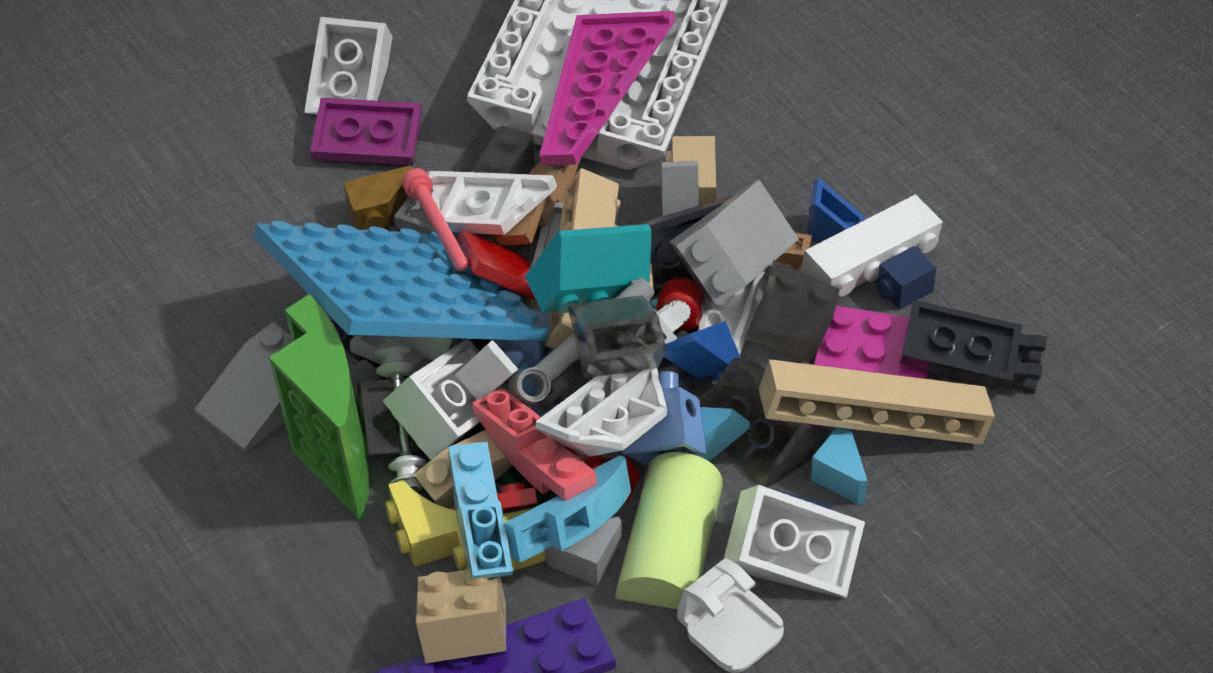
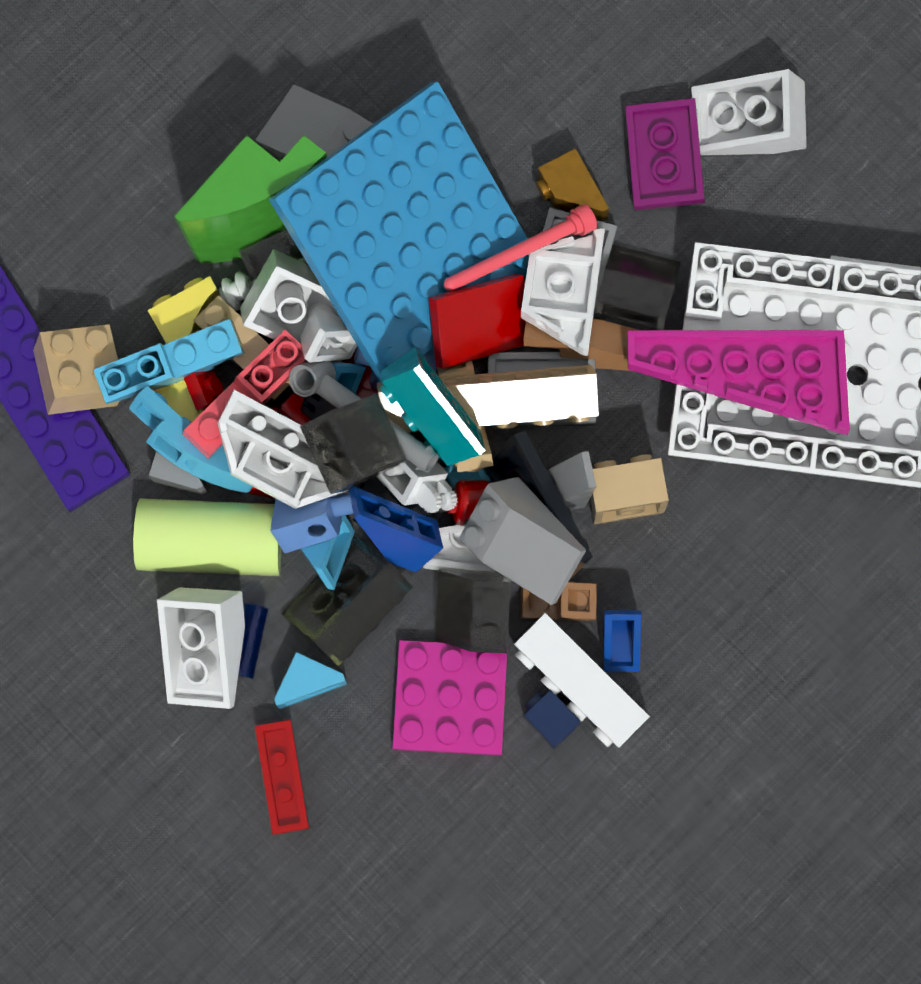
camera: 85 degrees right, 30 degrees up
(728, 618) = (113, 604): white piece -> none
(875, 402) = (359, 703): tan brick -> none
(940, 499) = (282, 777): none -> red plate
(972, 347) = (465, 787): black tile -> none

